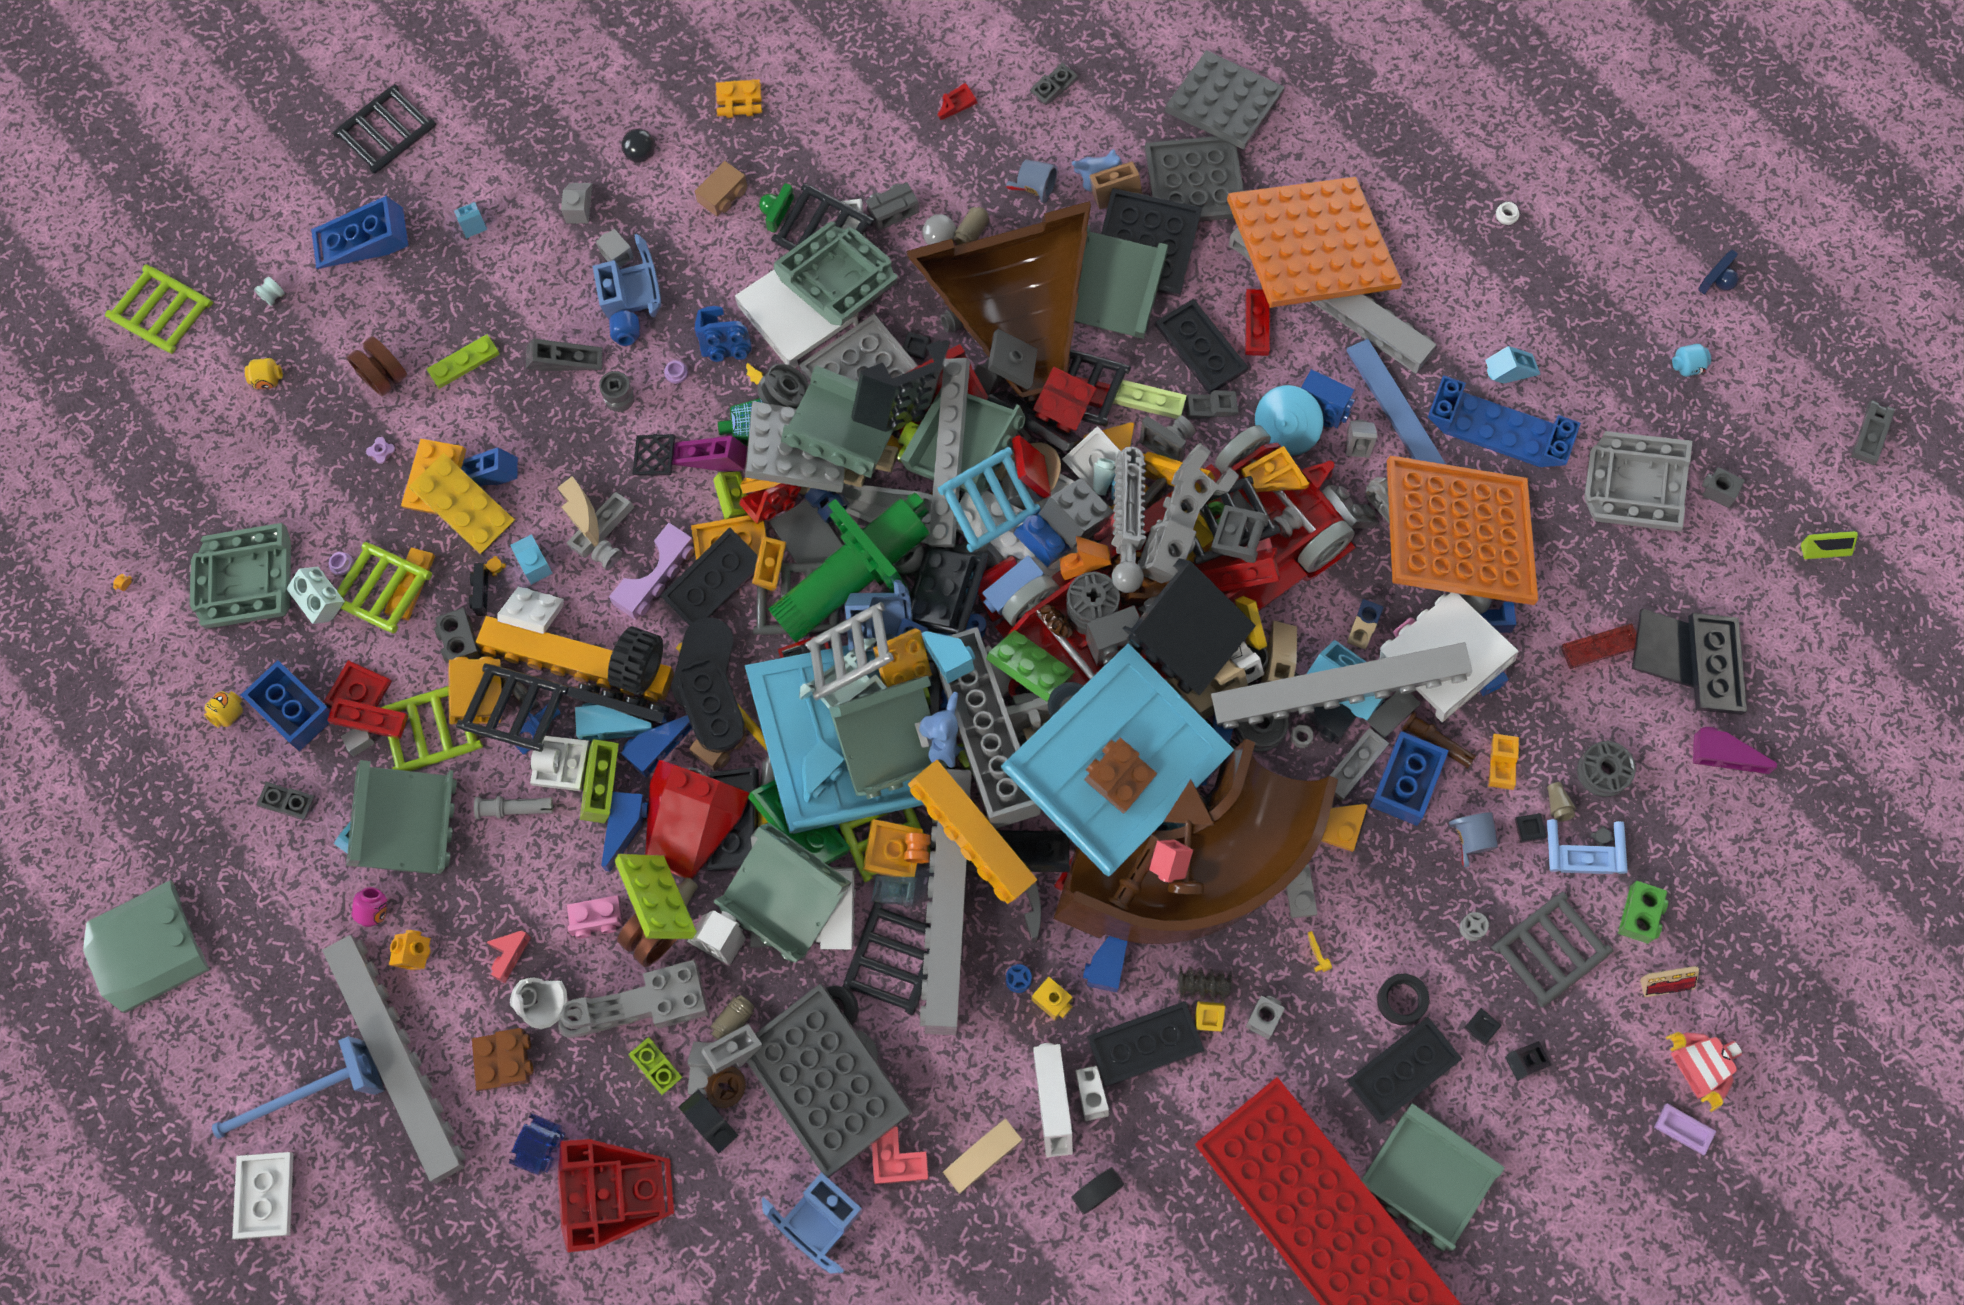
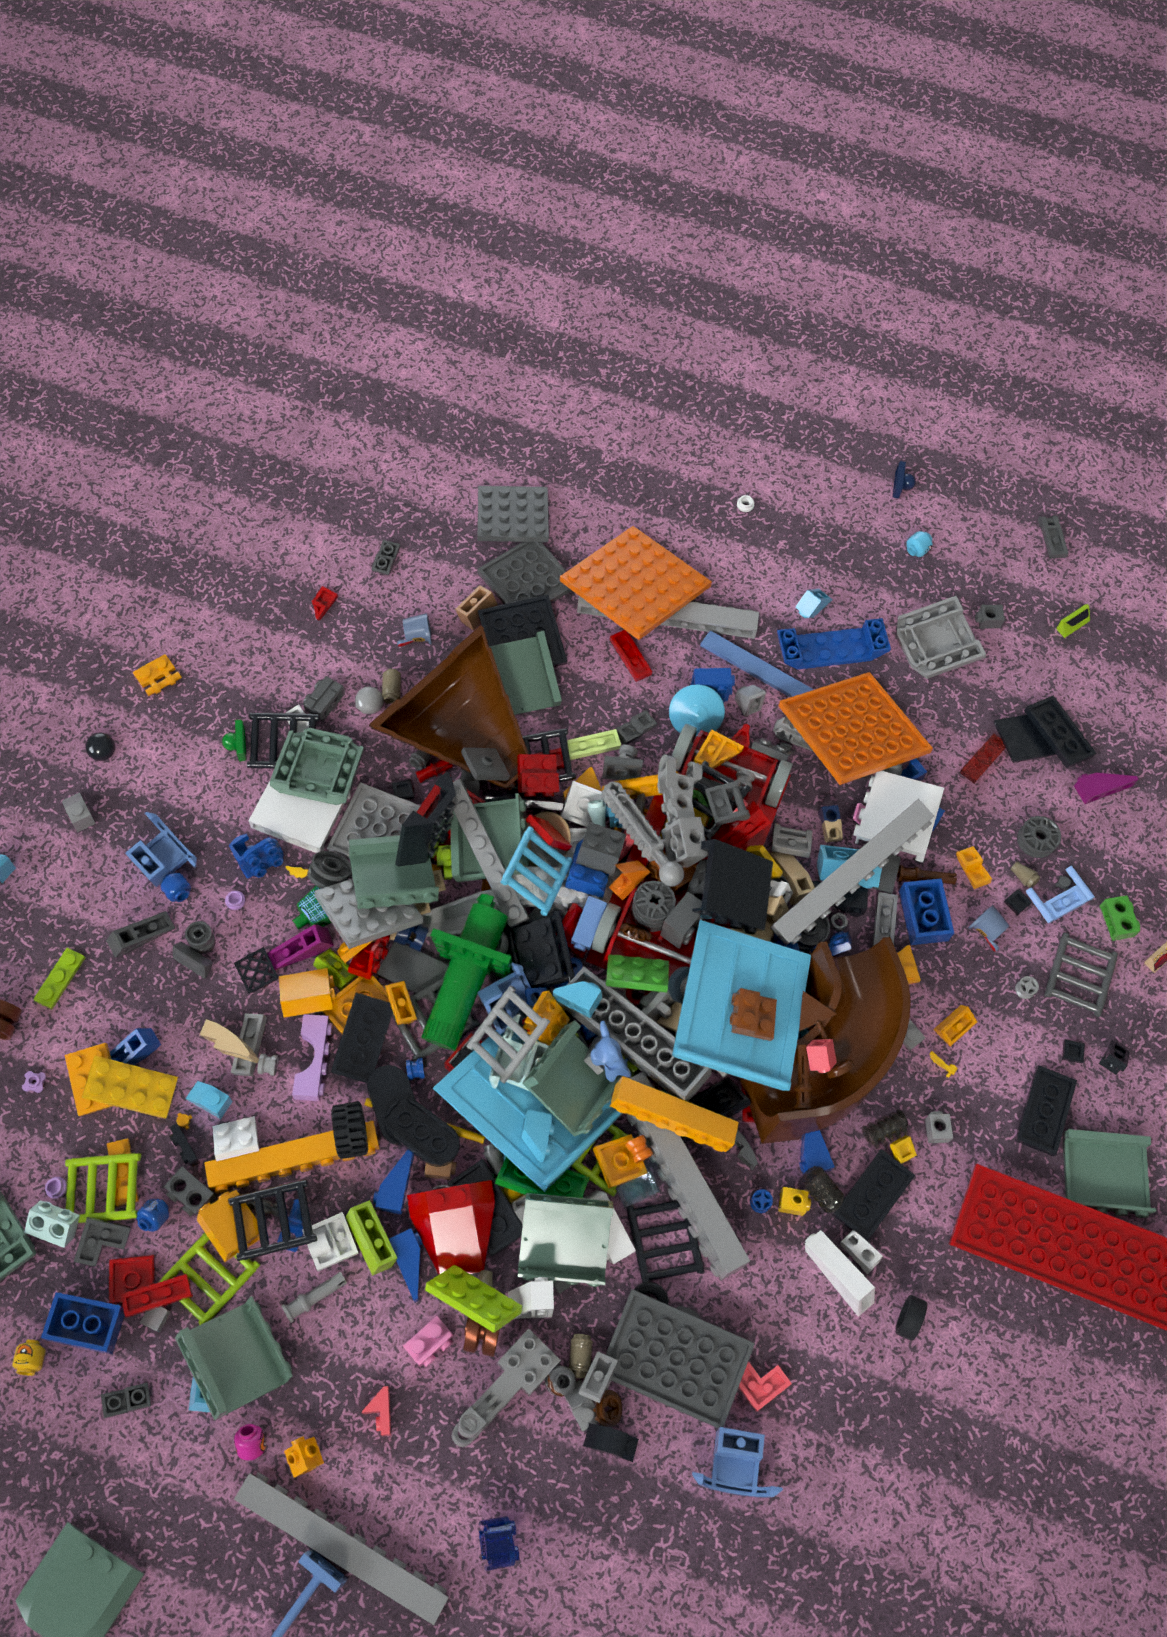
camera: 40 degrees left, 5 degrees down
(347, 629) = (99, 1233): none -> dark grey plate
(410, 640) = (152, 1215): none -> blue head
(502, 1059) = (426, 1495): dark orange plate -> none
(550, 998) = (438, 1431): white helmet -> none
(597, 409) = (192, 959): none -> dark grey slope
(606, 723) = (346, 1191): medium azure slope -> none
(608, 1192) = (572, 1545): red wedge -> none
(615, 248) = (130, 831): light grey brick -> none
(615, 700) = (344, 1170): black plate -> none
(655, 1065) = (544, 1426): lime slope -> none
(684, 502) = (306, 992): none -> light orange brick
(690, 1039) = (567, 1383): none -> flat silver head
(721, 189) = (186, 748): medium nougat brick -> none
(747, 640) = (415, 1069): none -> blue wheel
(955, 339) = (433, 770): none -> red axle
(982, 1156) = (818, 1342): tan slope -> none
(1089, 1003) = (822, 1189): none -> clear smoke piece
(1090, 165) = (450, 603): medium blue animal -> none
(1201, 346) = (603, 690): black plate -> none
(1280, 758) = (839, 943): none -> blue plate
(1305, 619) = (791, 841): none -> light grey plate
(1363, 921) = (956, 1025): none -> light orange slope
(1417, 985) = (1003, 1071): black tyre -> none

